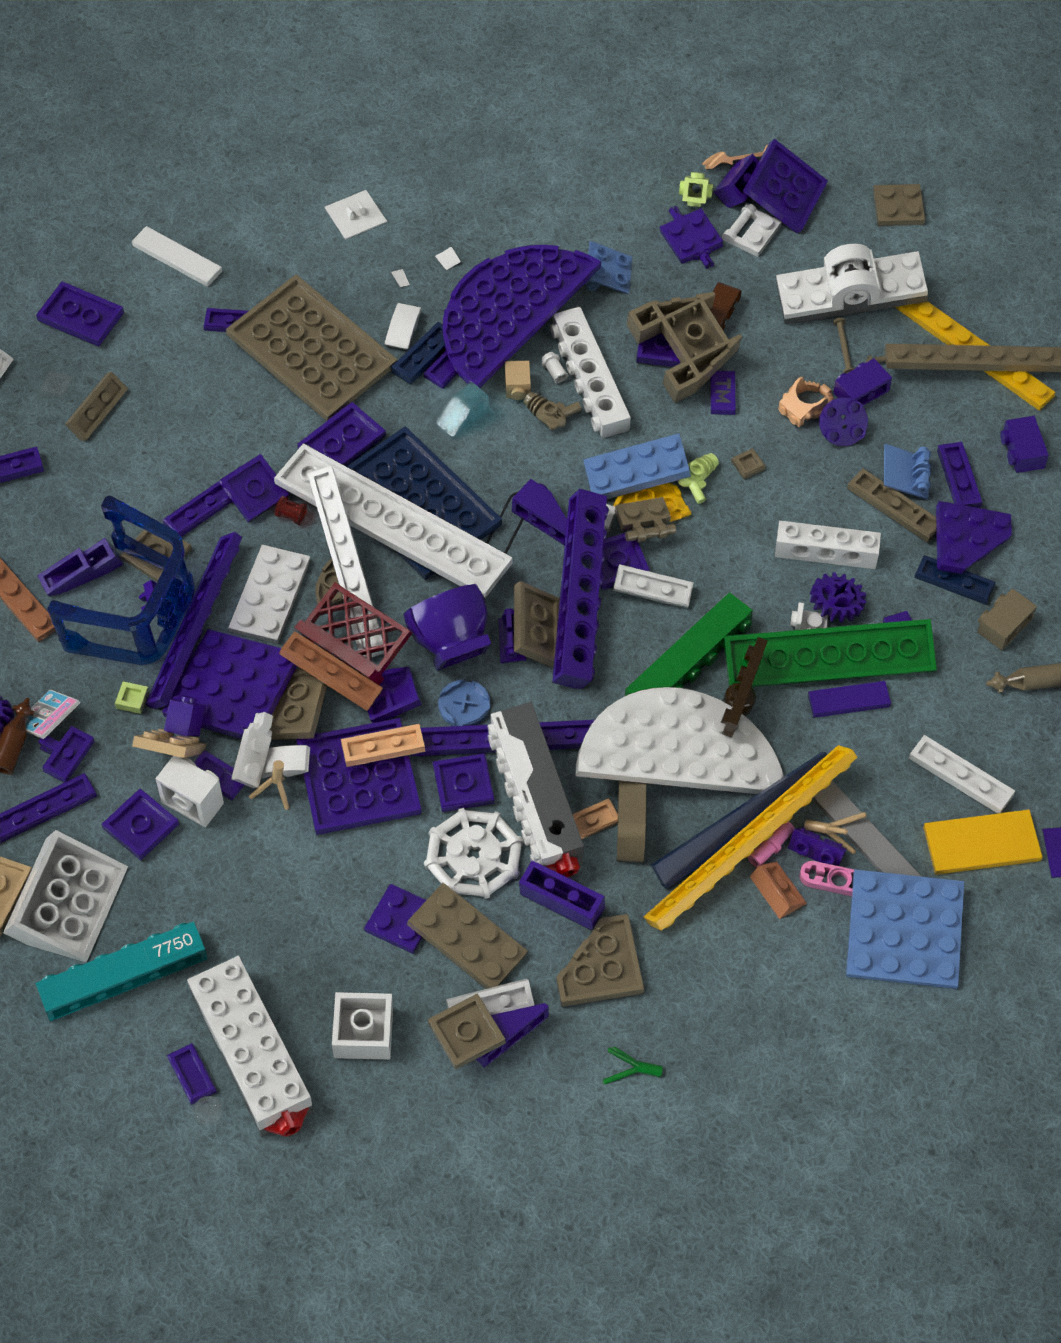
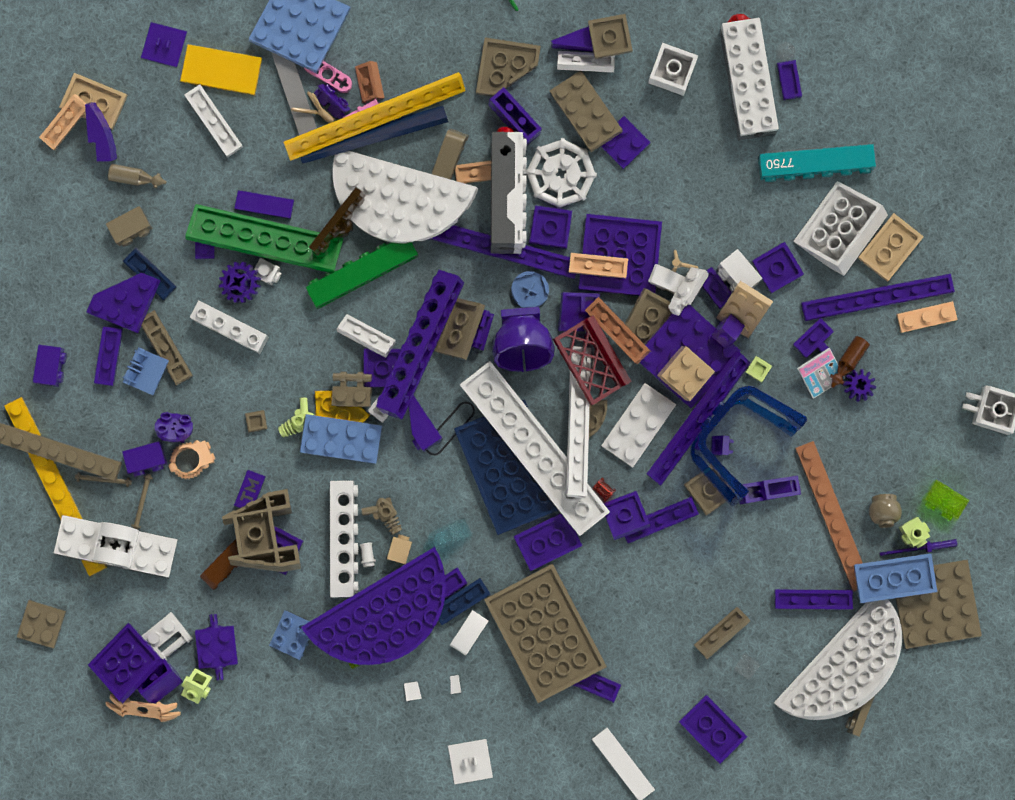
camera: 160 degrees left, 25 degrees up
(225, 648) = (685, 373): none -> tan brick

